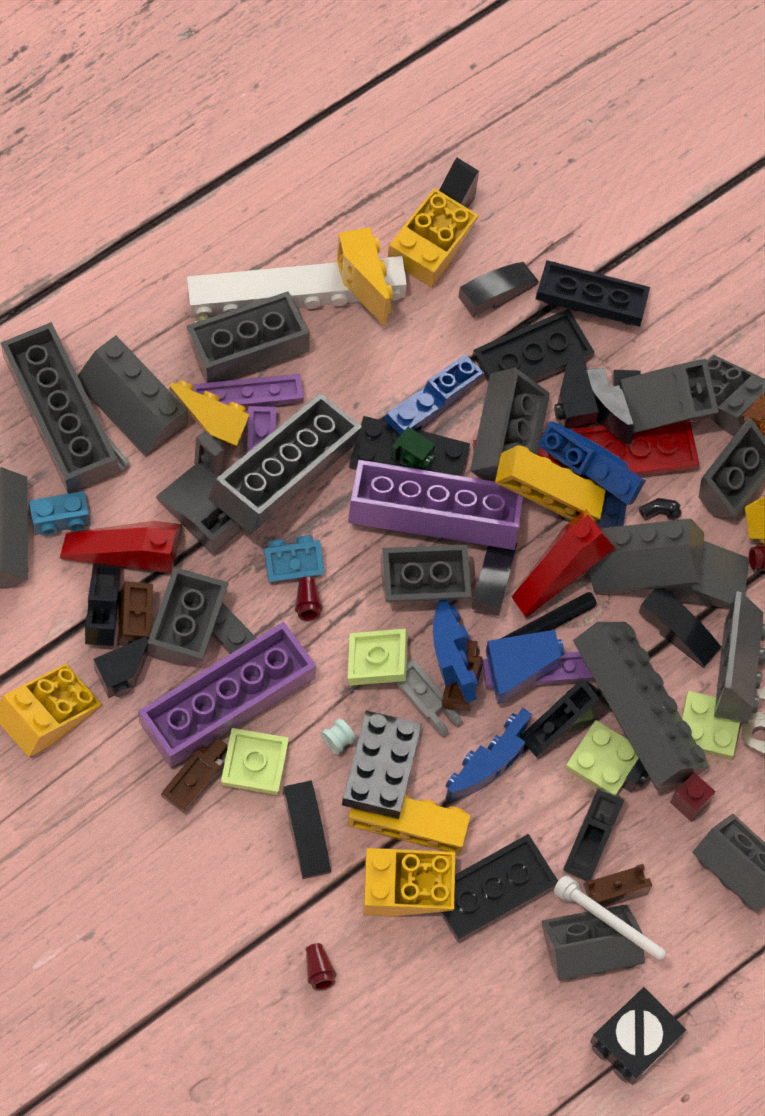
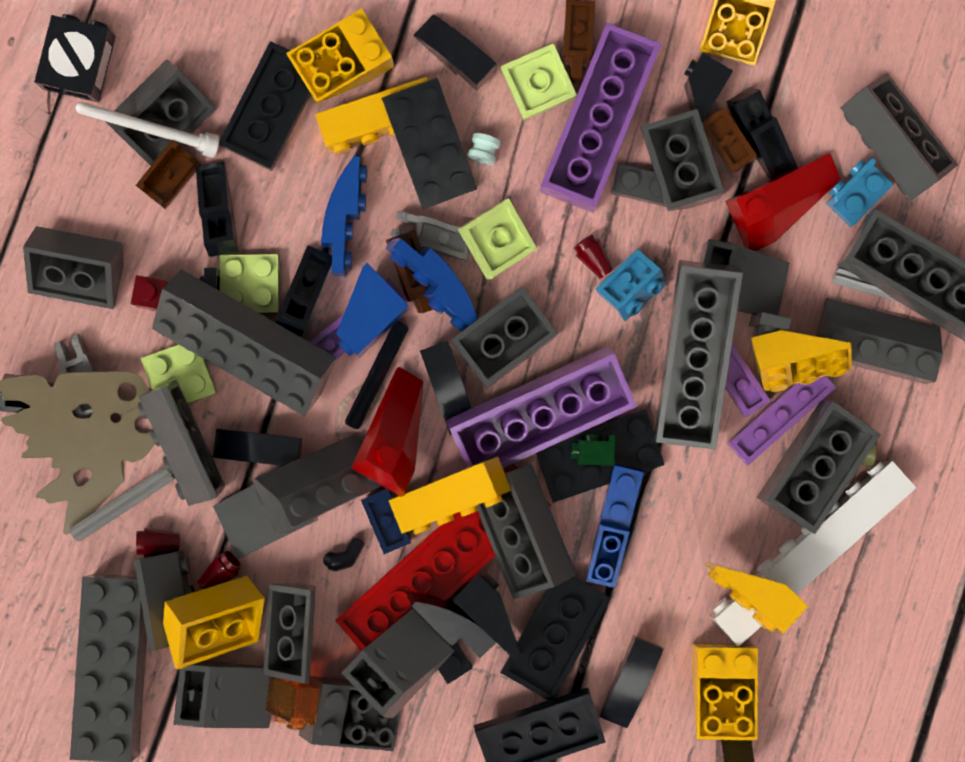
camera: 155 degrees right, 20 degrees up
(593, 461) = (434, 550): blue slope -> none

